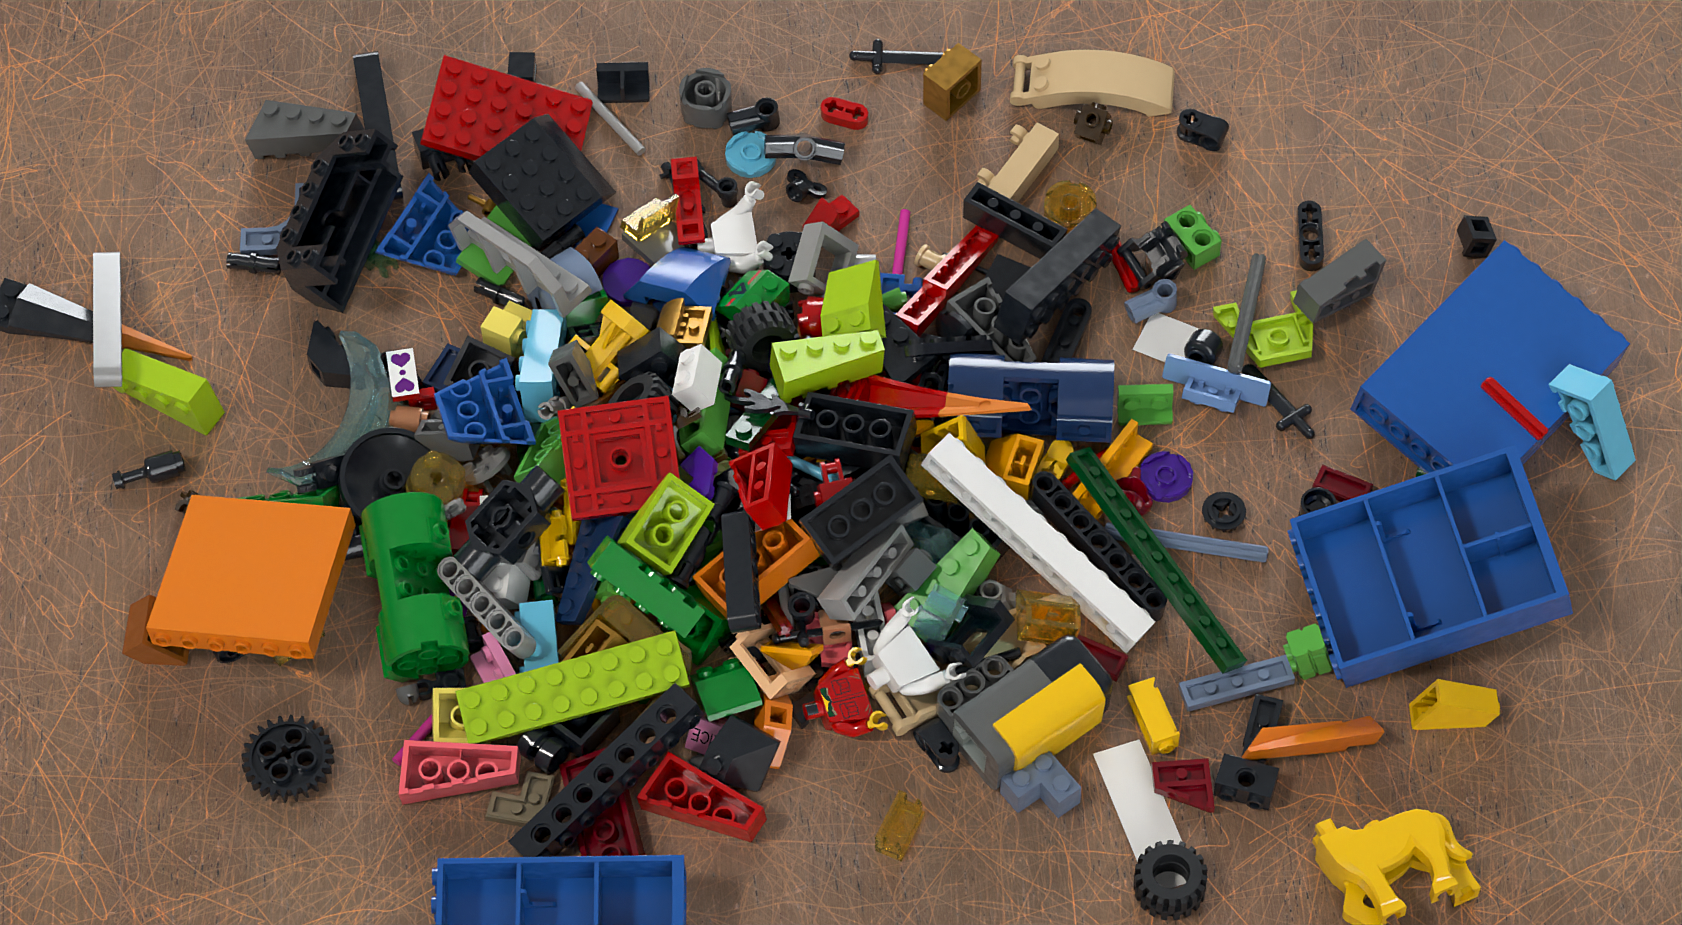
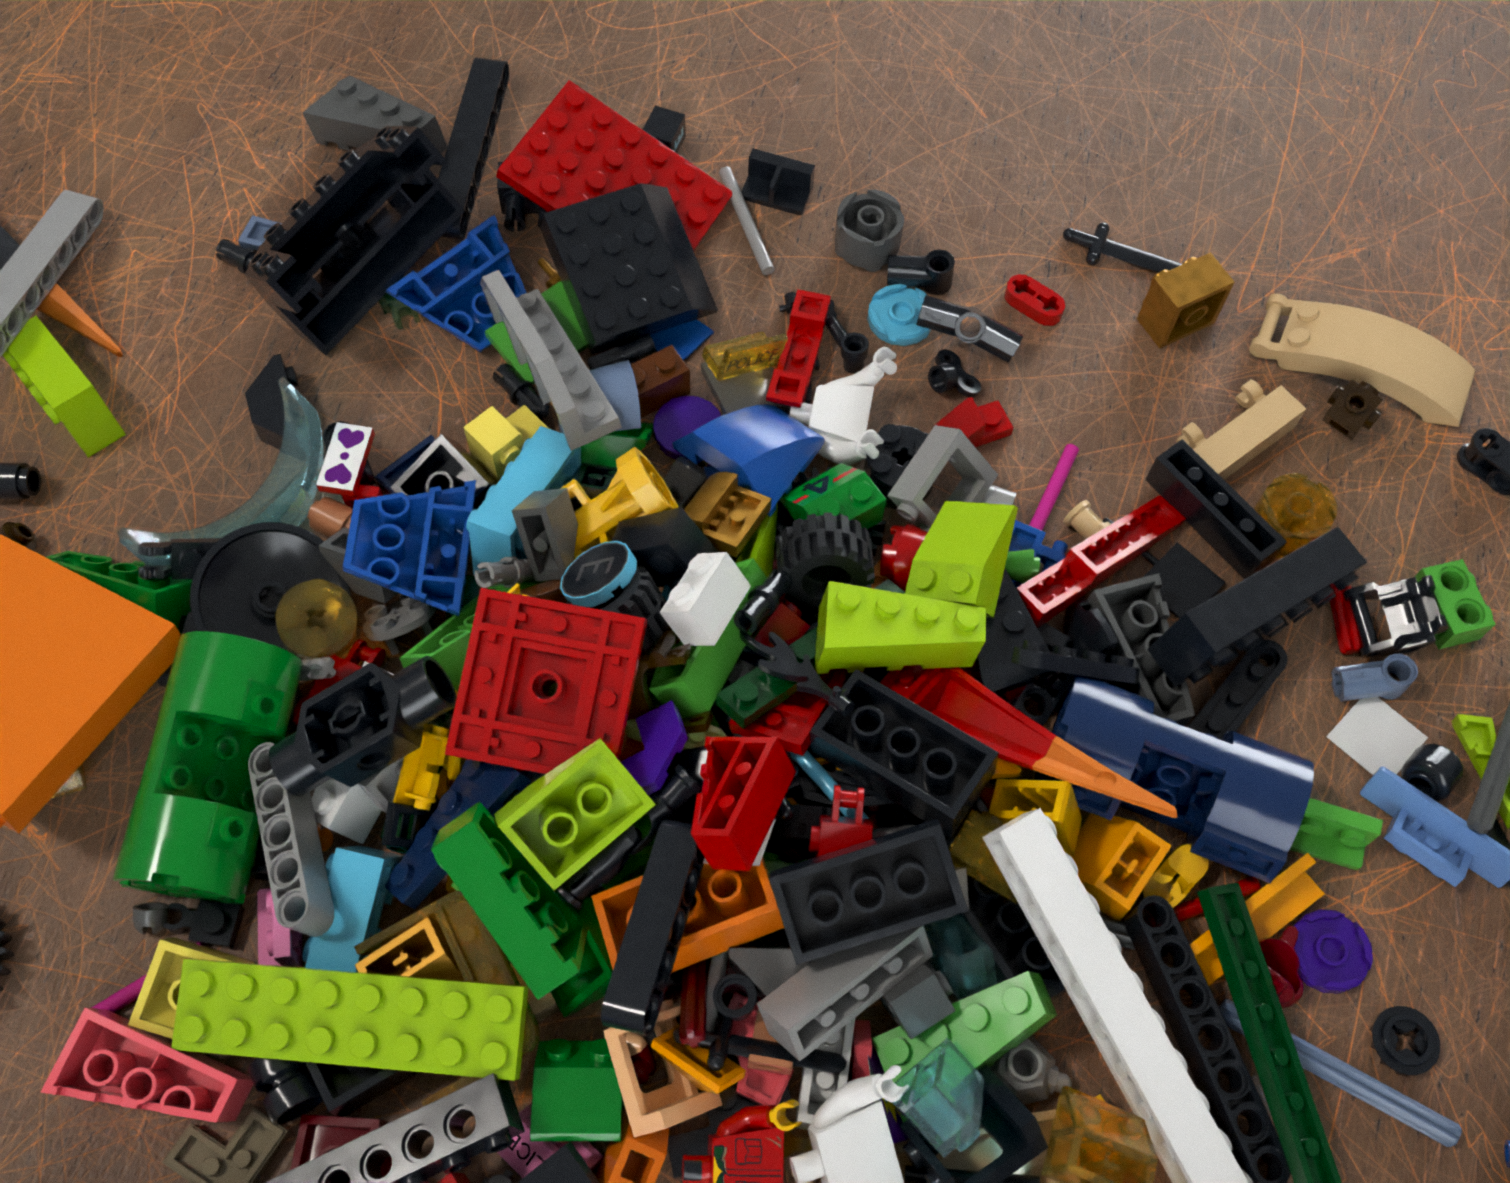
camera: 15 degrees right, 5 degrees up
(622, 383) = (597, 573): none -> tile

